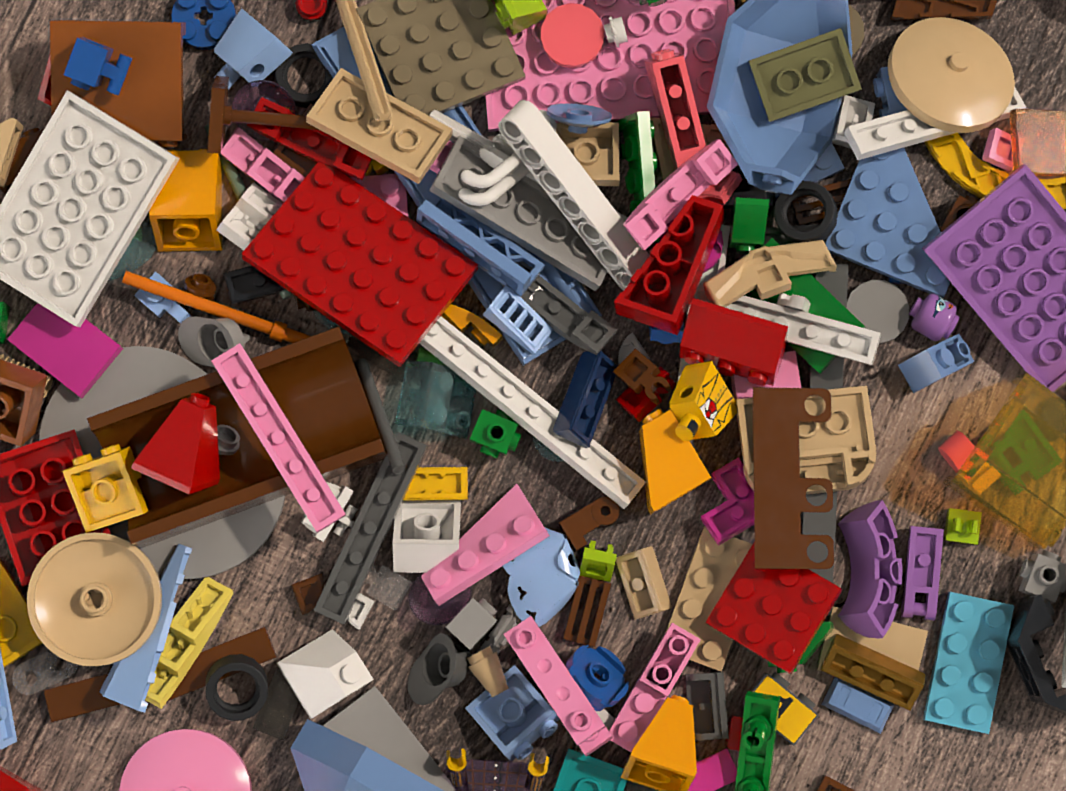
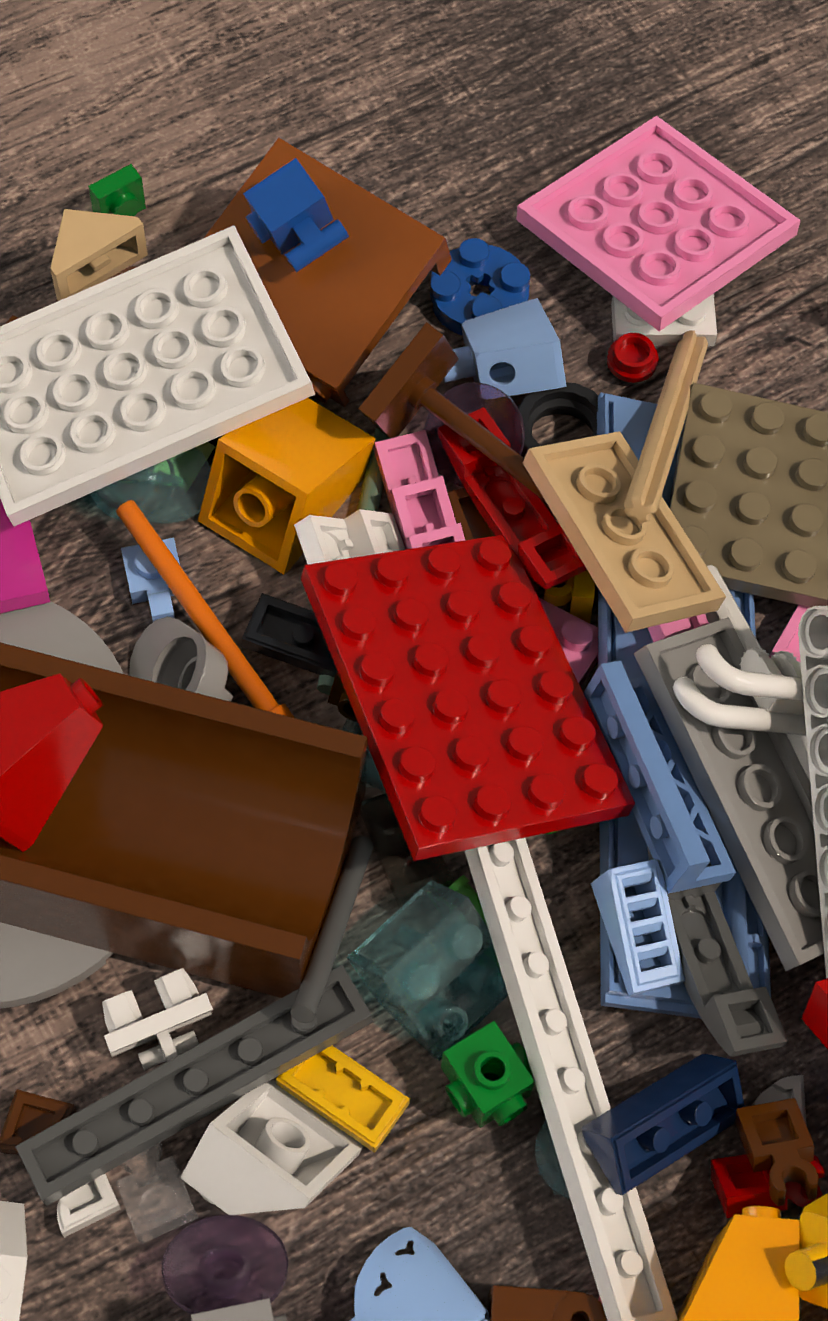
camera: 35 degrees right, 20 degrees down
(200, 286) = (219, 593): reddish brown plate -> none
(227, 440) = (84, 798): flat silver plate -> none
(278, 438) = (155, 833): bright pink plate -> none
(463, 319) = (562, 886): light orange slope -> none
(489, 544) = (360, 1242): bright pink wing -> none

